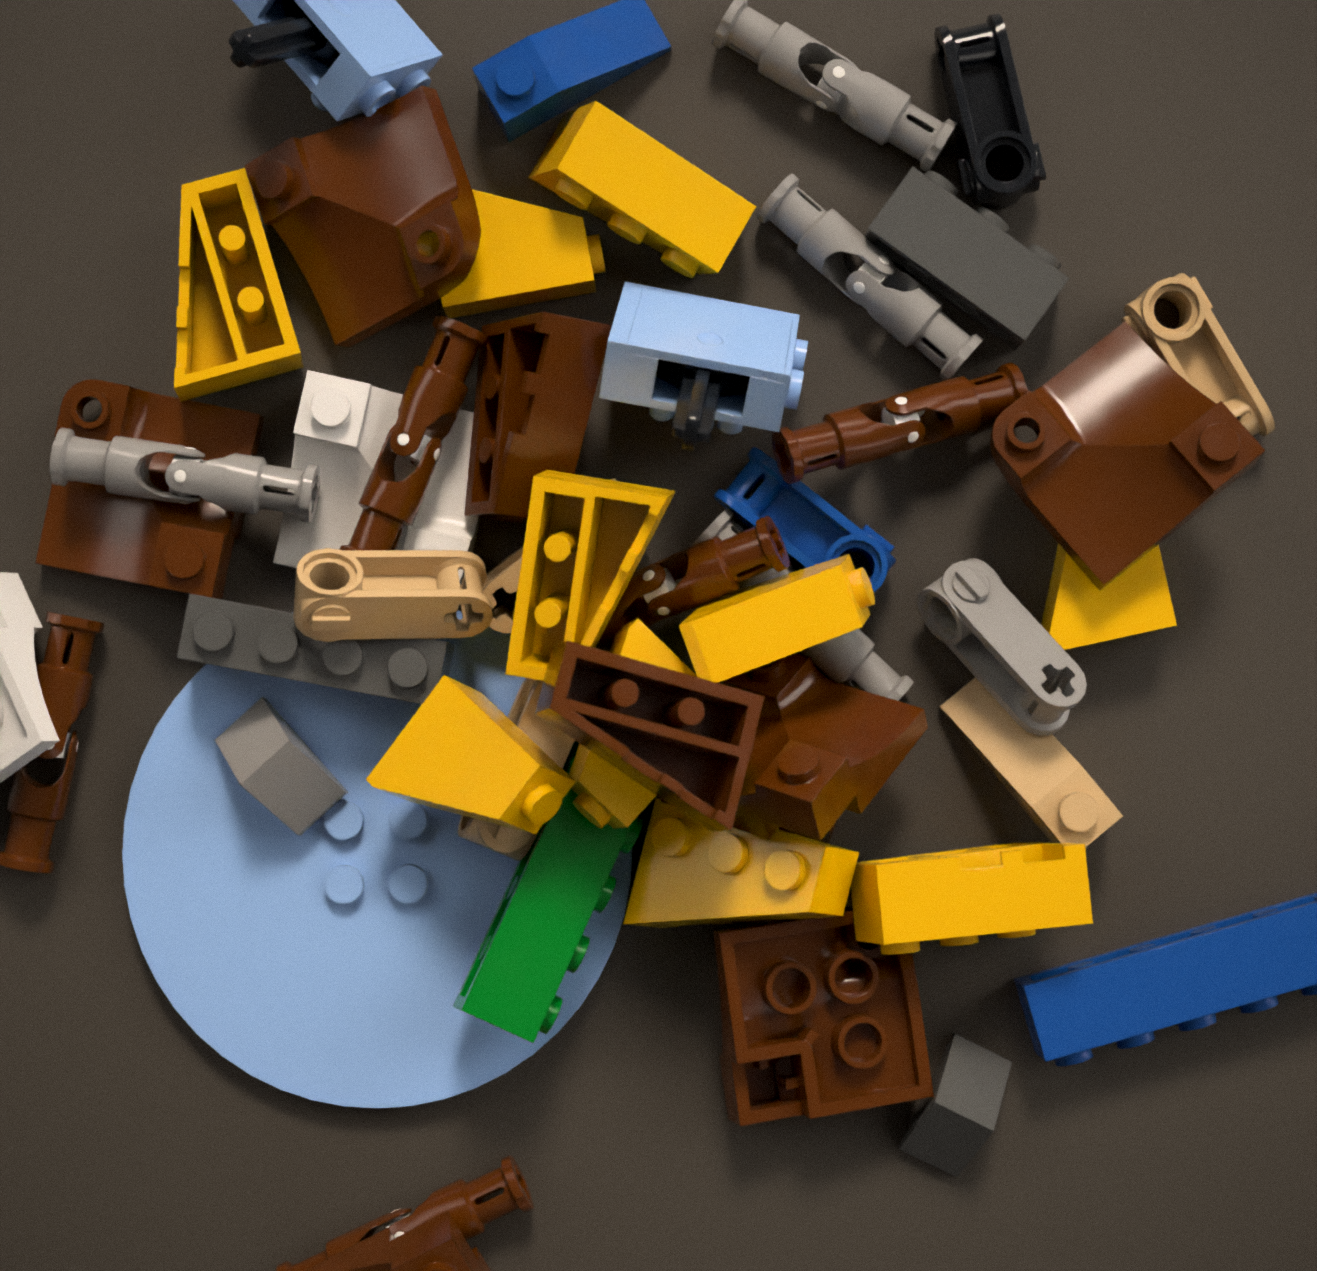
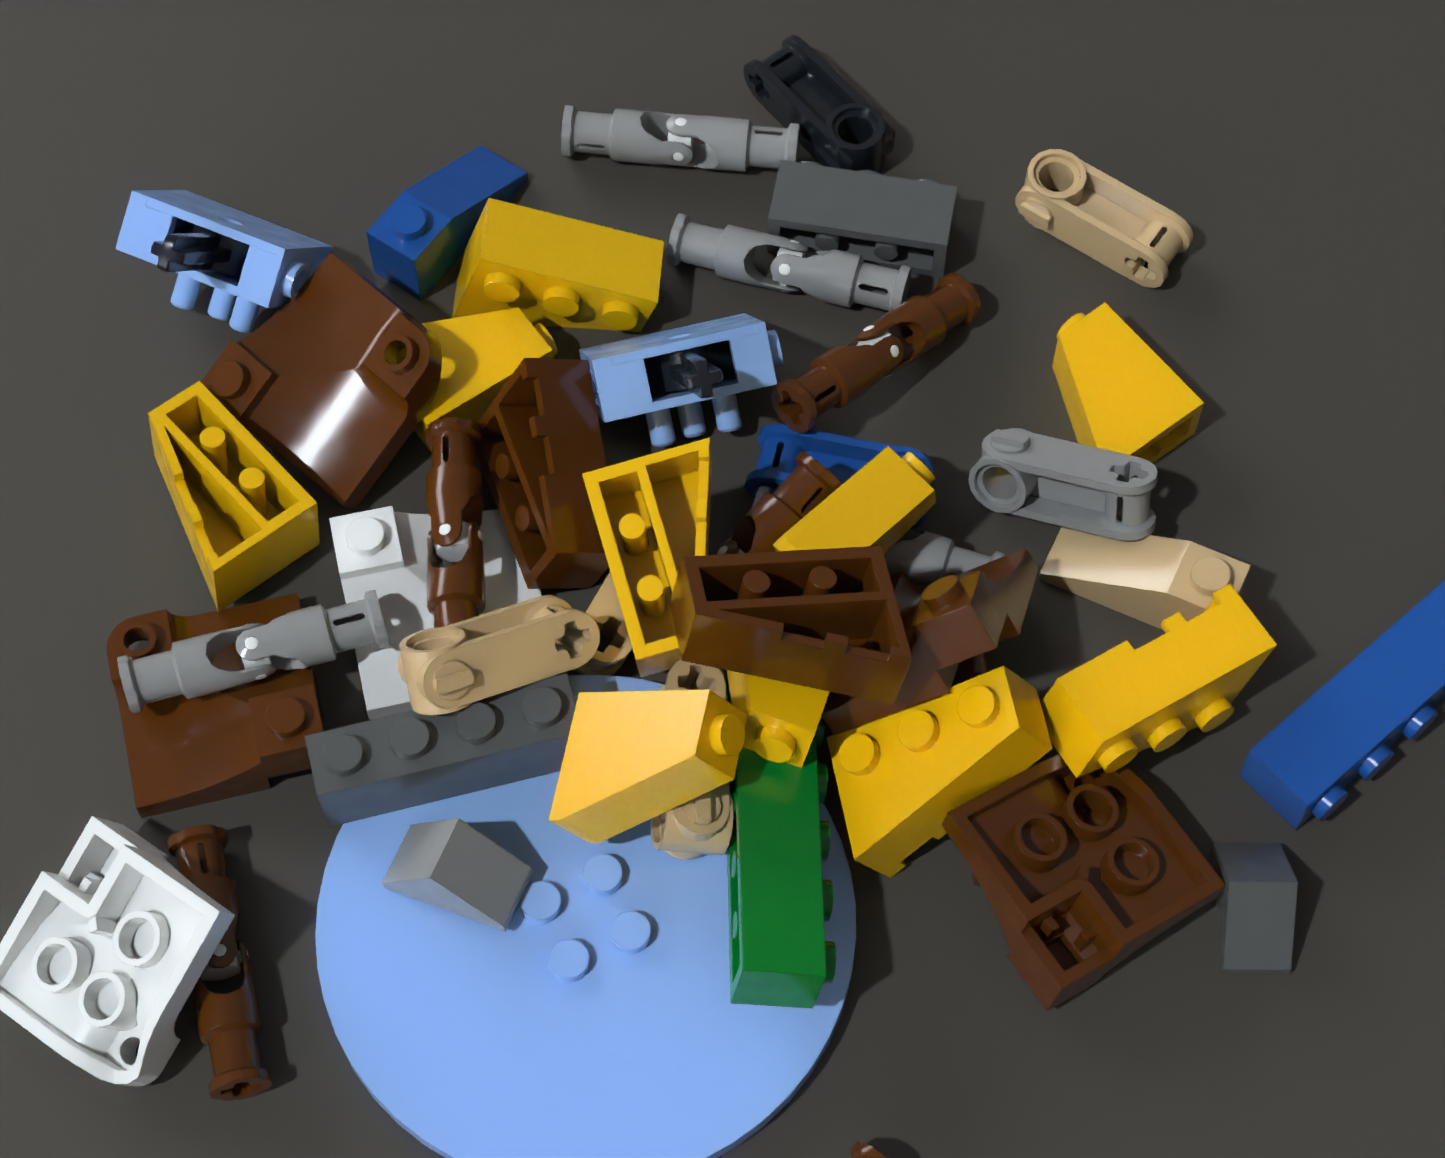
camera: 30 degrees left, 25 degrees down
(1119, 453) = (1078, 289): reddish brown slope -> none

